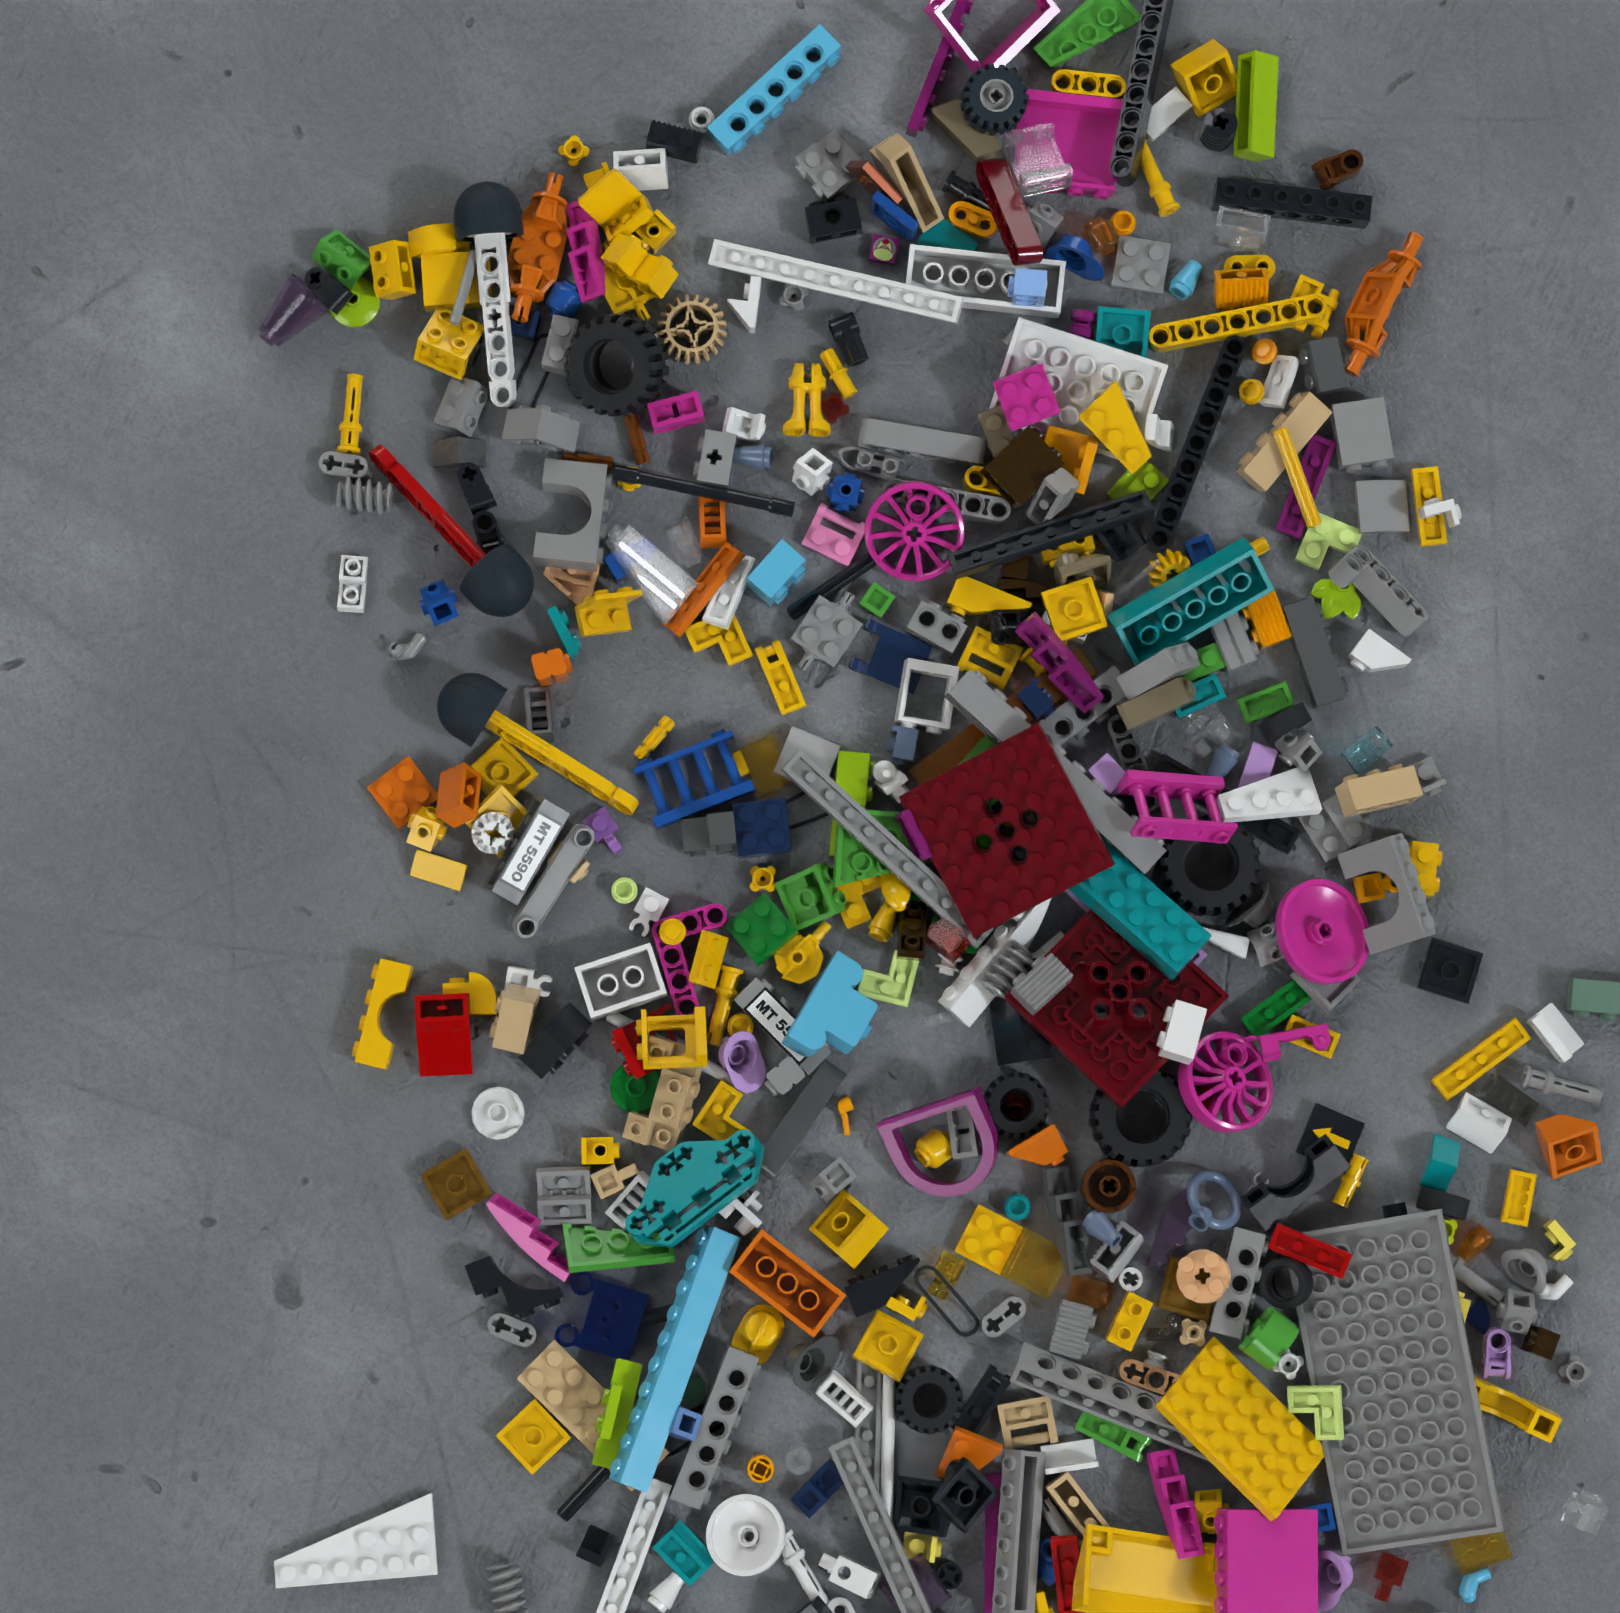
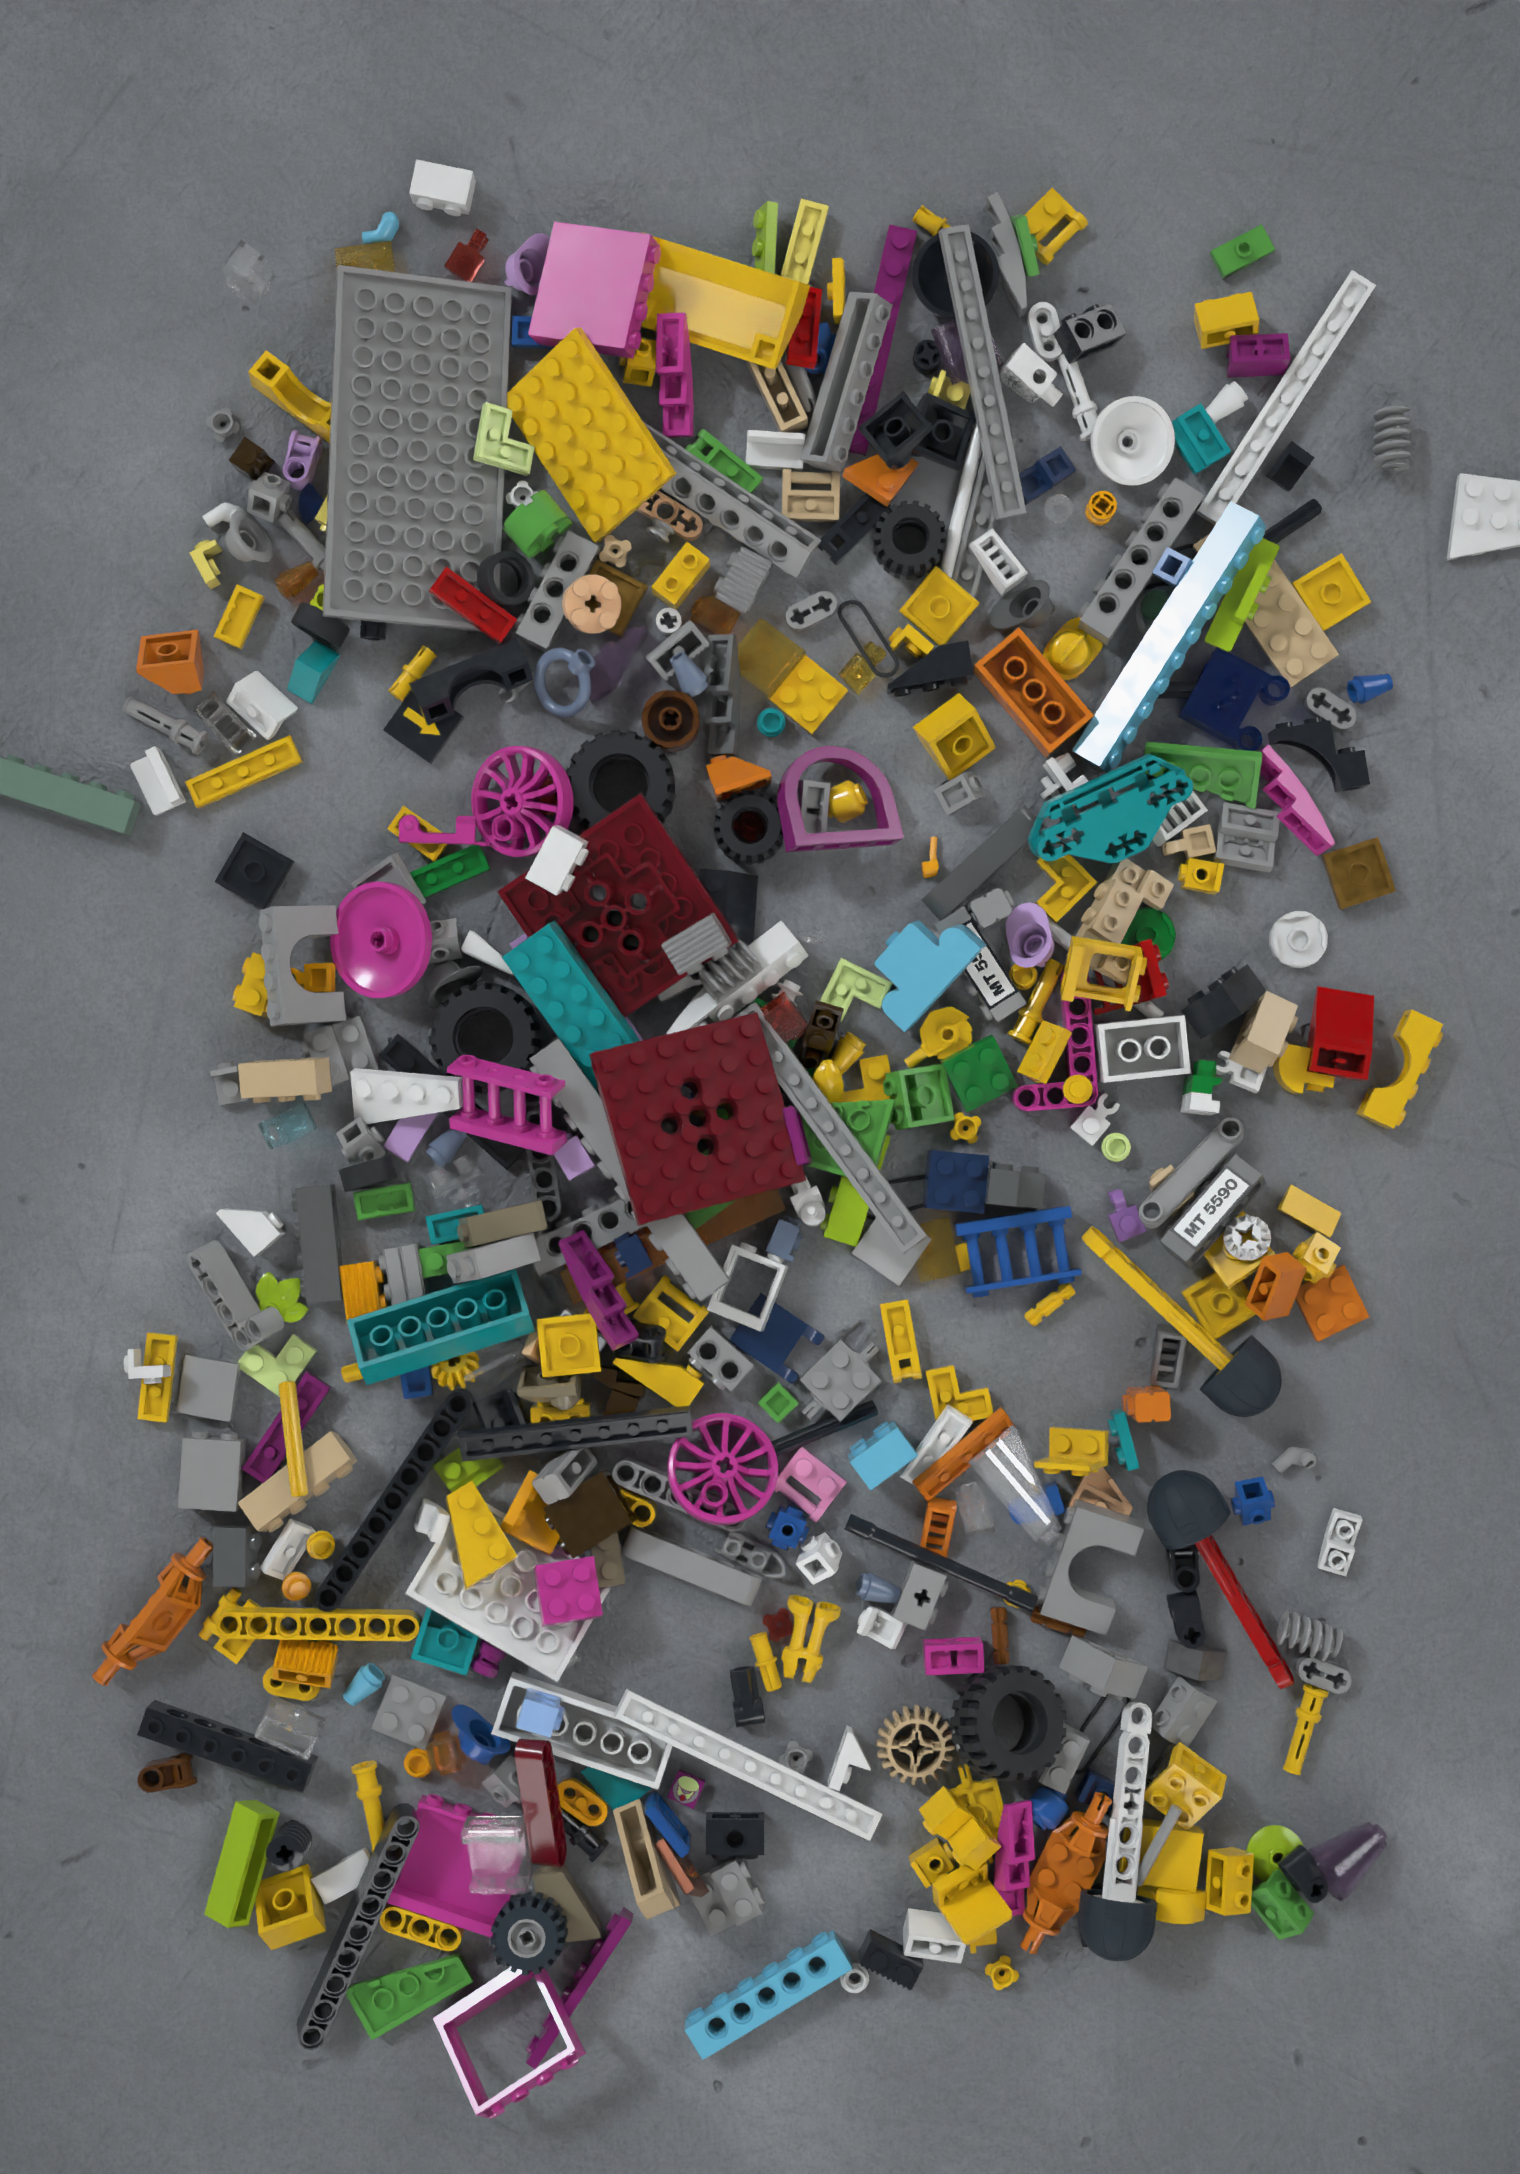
camera: 165 degrees left, 5 degrees up
(482, 1356) = (1368, 687): none -> blue cone
(563, 956) = (1198, 1089): none -> hips

